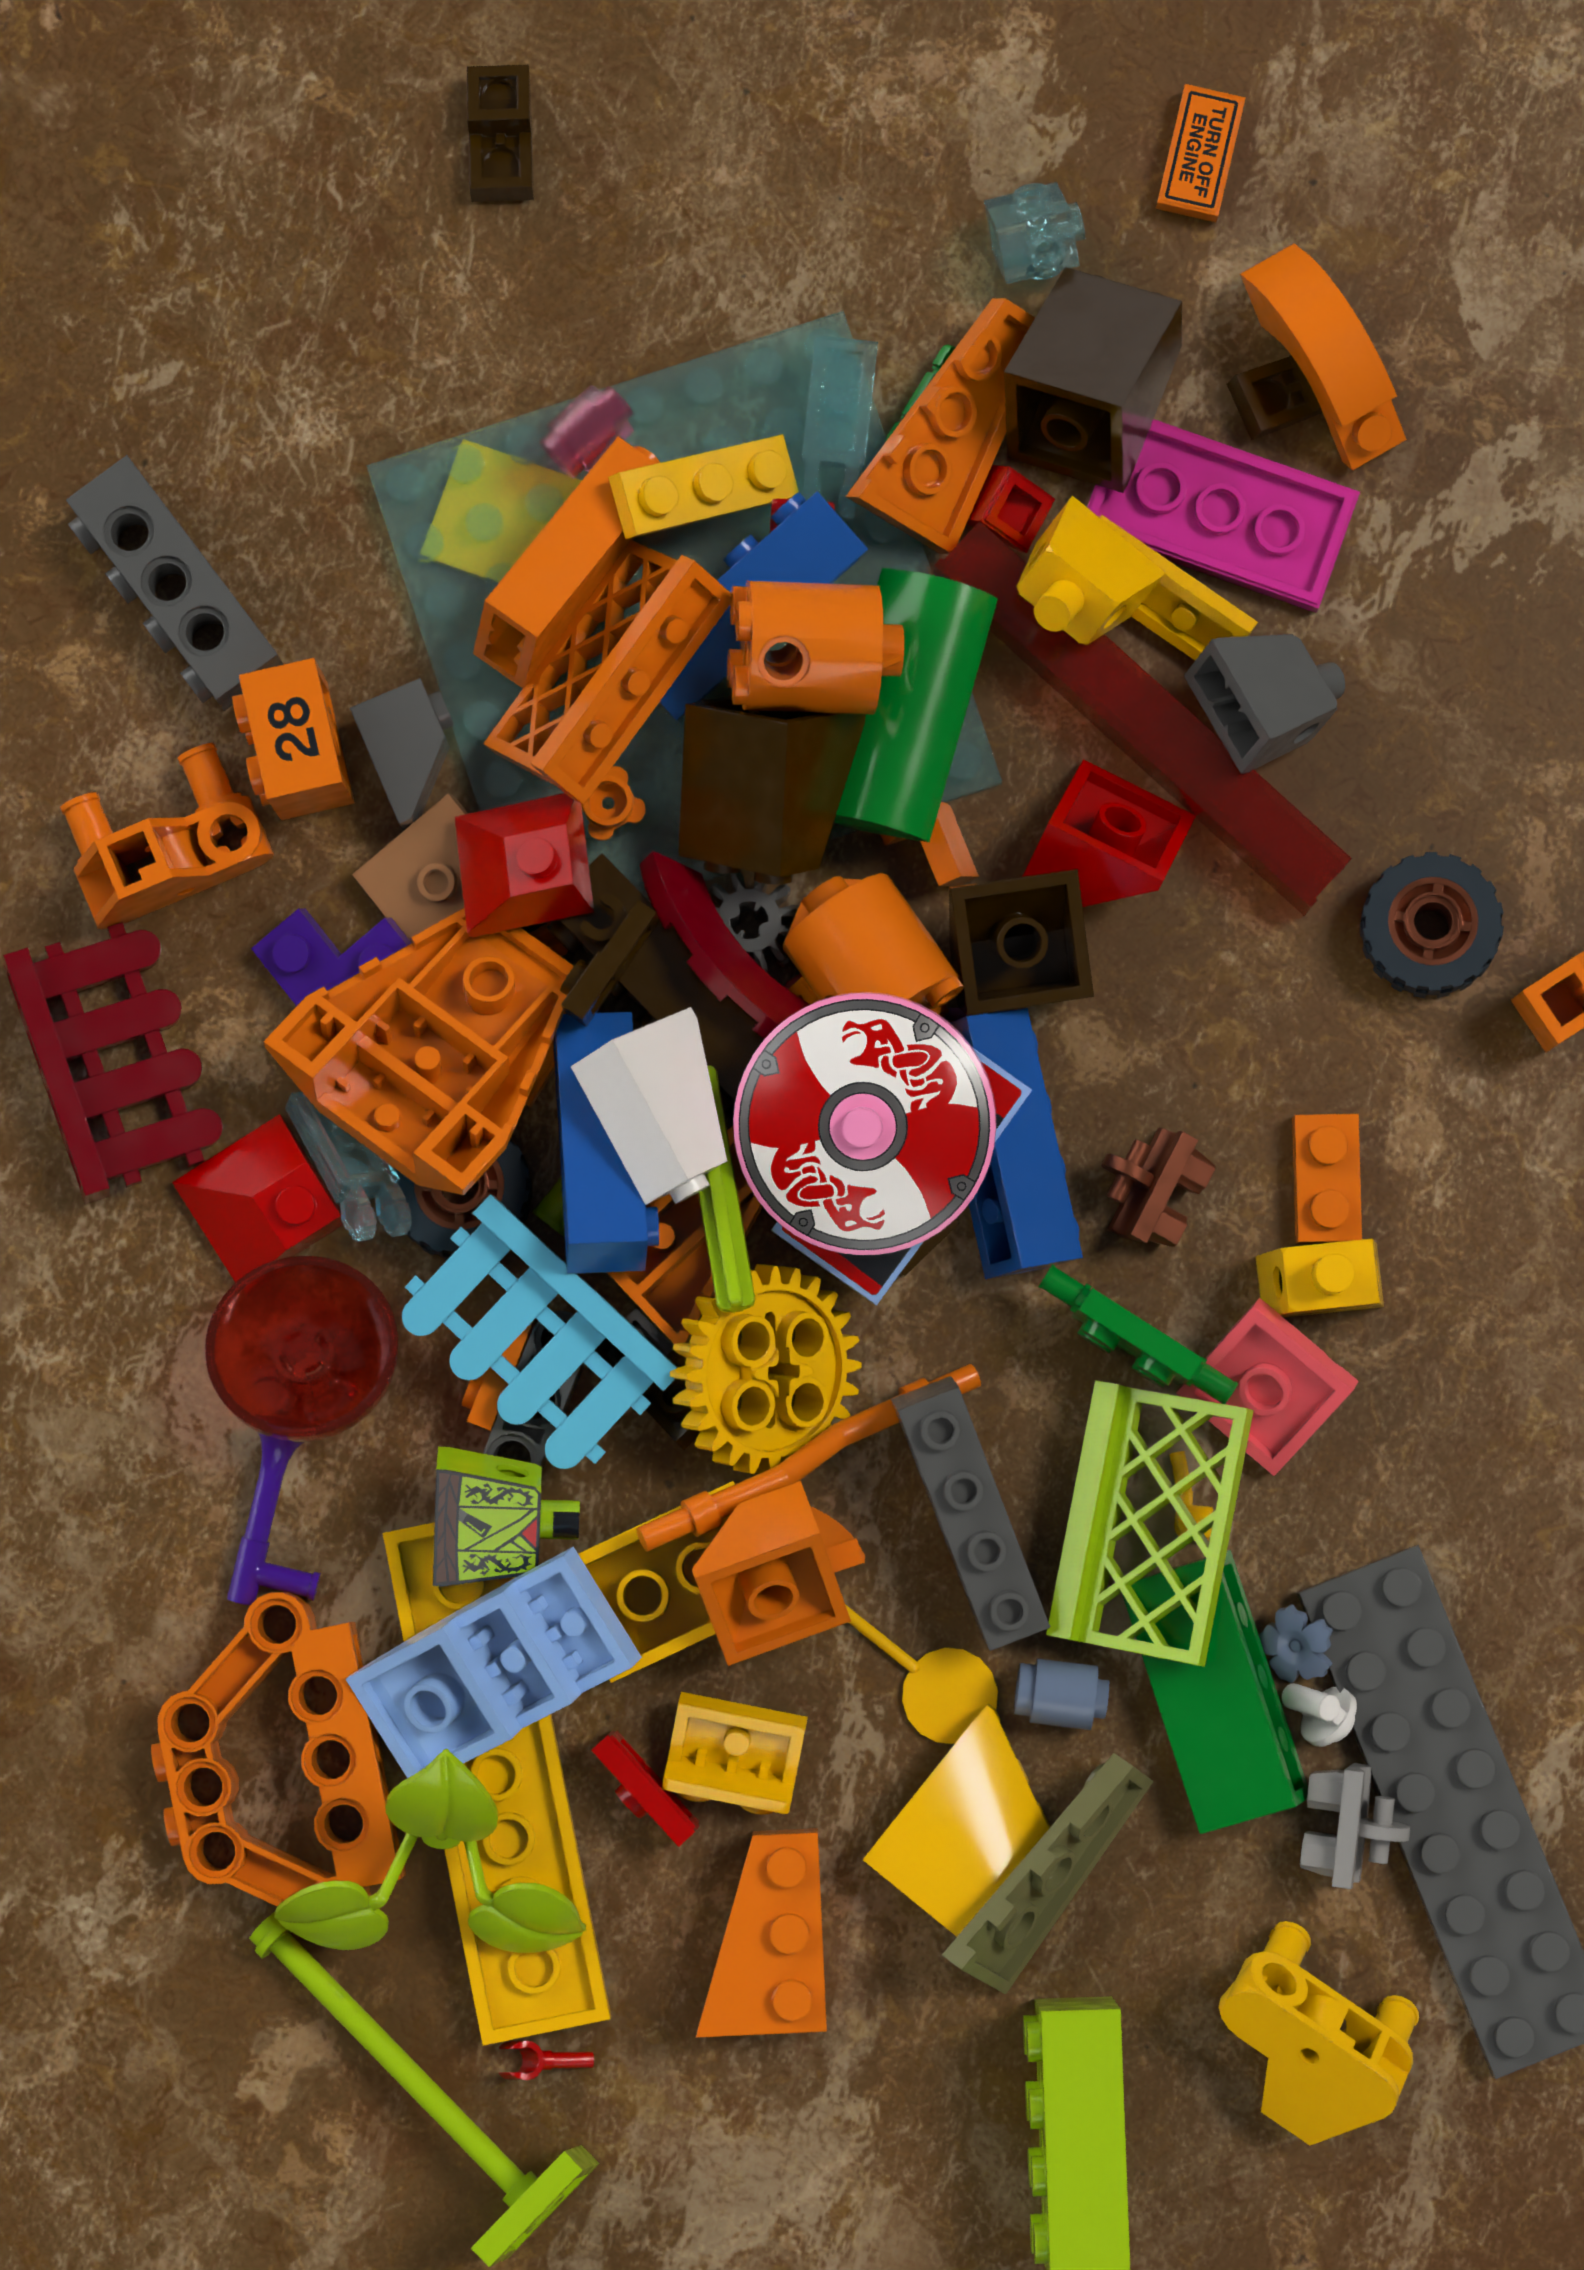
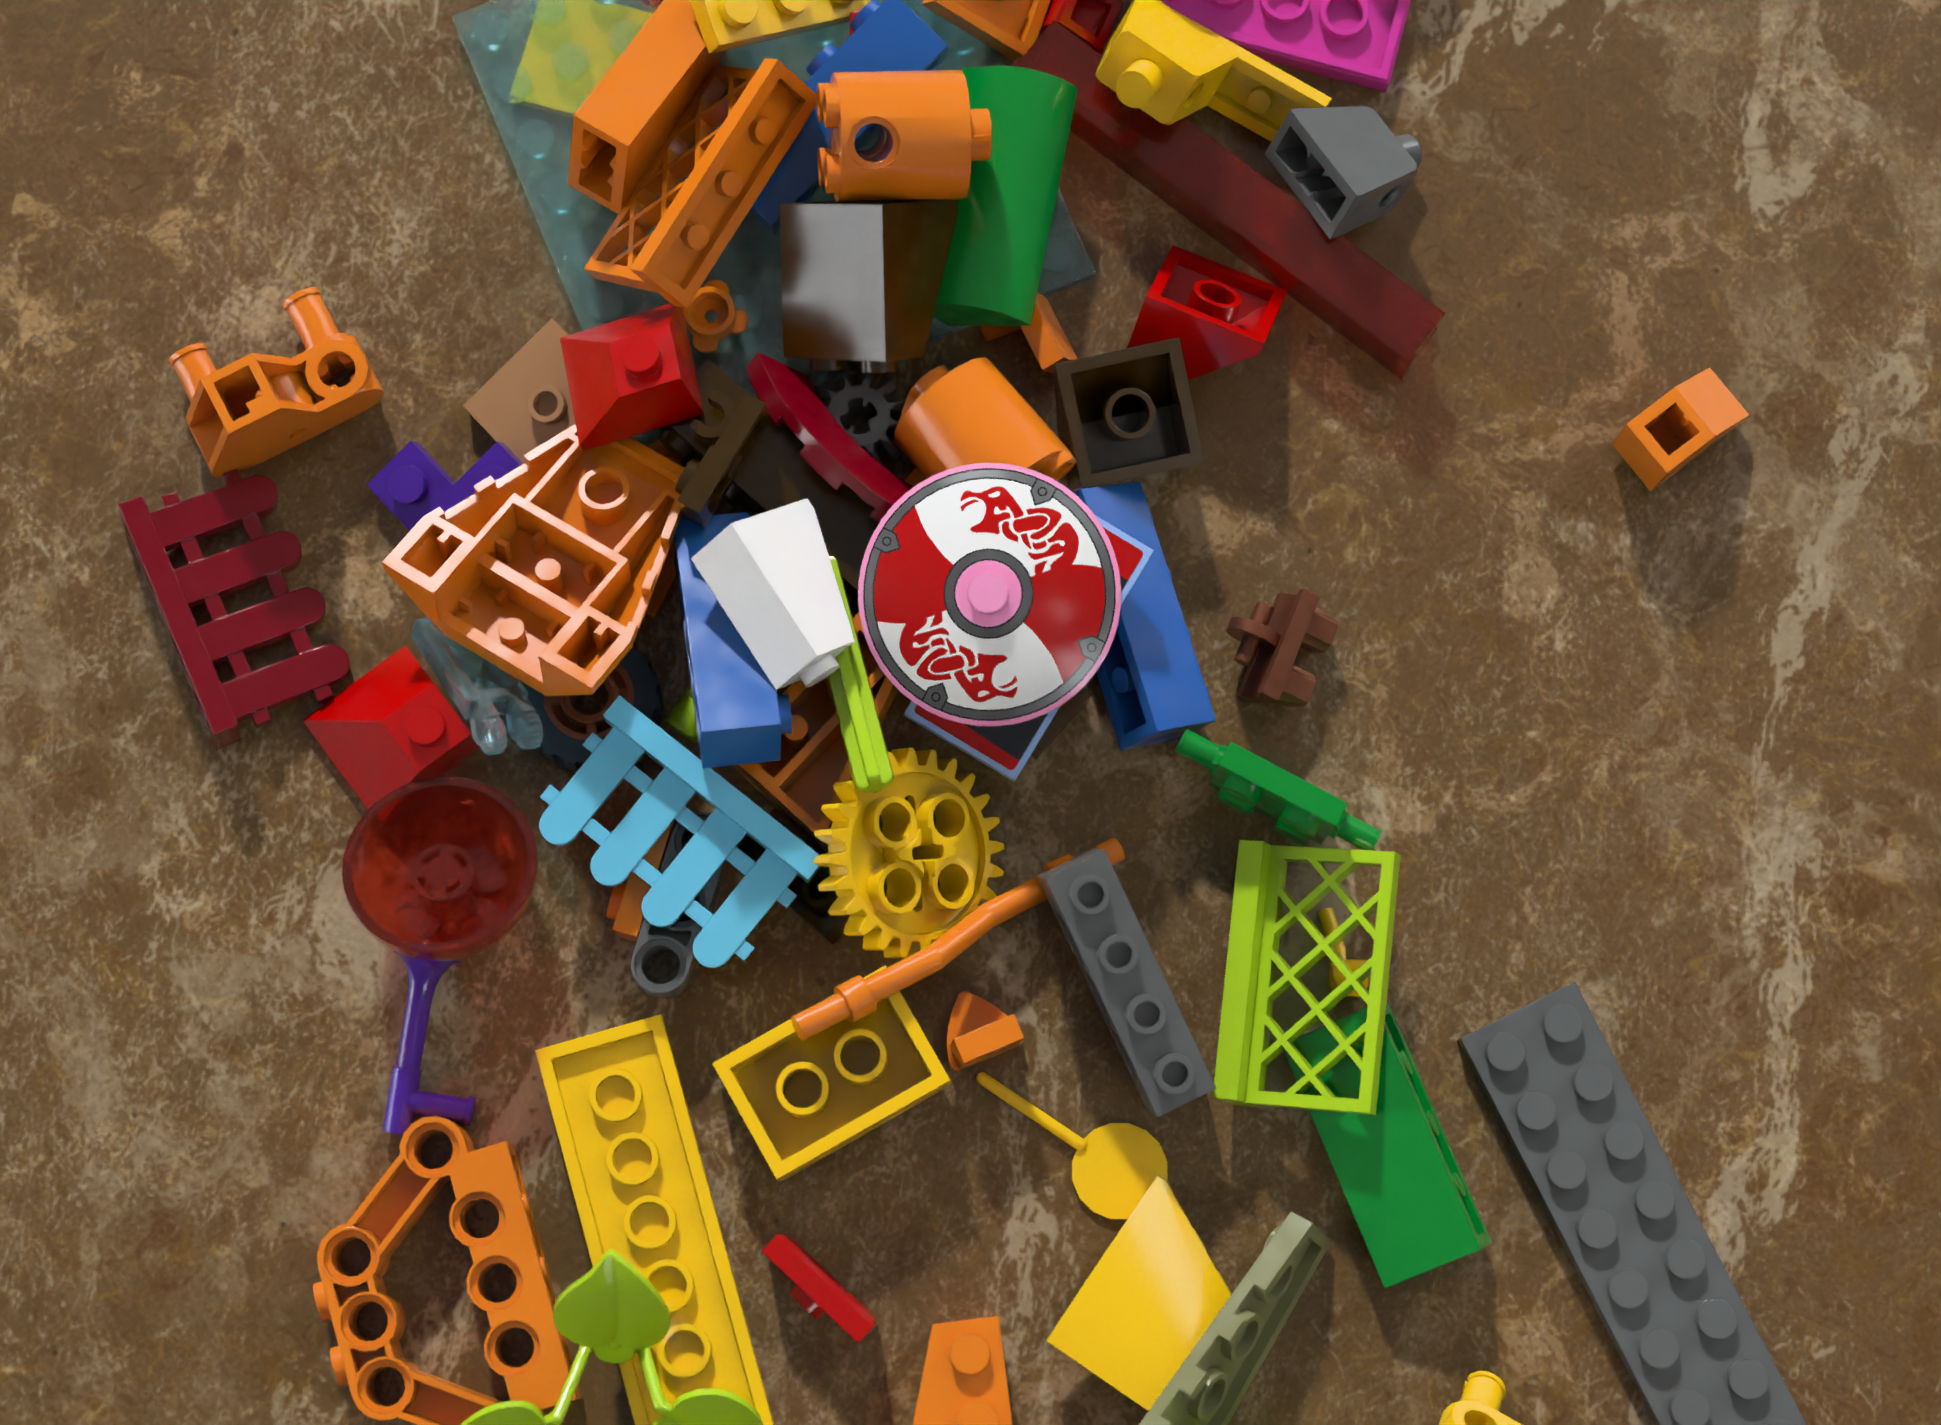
camera: 10 degrees left, 5 degrees down
(125, 499) = (216, 63): dark grey brick -> none
(295, 739) = (397, 275): orange brick -> none
(405, 744) = (507, 274): dark grey slope -> none
(492, 1517) = (644, 1021): torso -> none
(495, 1665) = (659, 1168): light blue slope -> none
(734, 1754) = (907, 1245): yellow bracket -> none
(769, 1576) = (929, 1055): orange slope -> none
(1061, 1694) = (1231, 1158): sand blue brick -> none
(1281, 1379) = (1426, 823): coral hinge -> none
(1297, 1646) = (1463, 1090): sand blue plant -> none
(1321, 1278) = (1453, 724): yellow torso -> none
(1326, 1178) = (1448, 629): orange plate -> none
(1326, 1714) = (1498, 1157): white plate -> none
(1342, 1854) = (1529, 1297): light grey hips -> none
(1438, 886) = (1536, 339): black wheel -> none

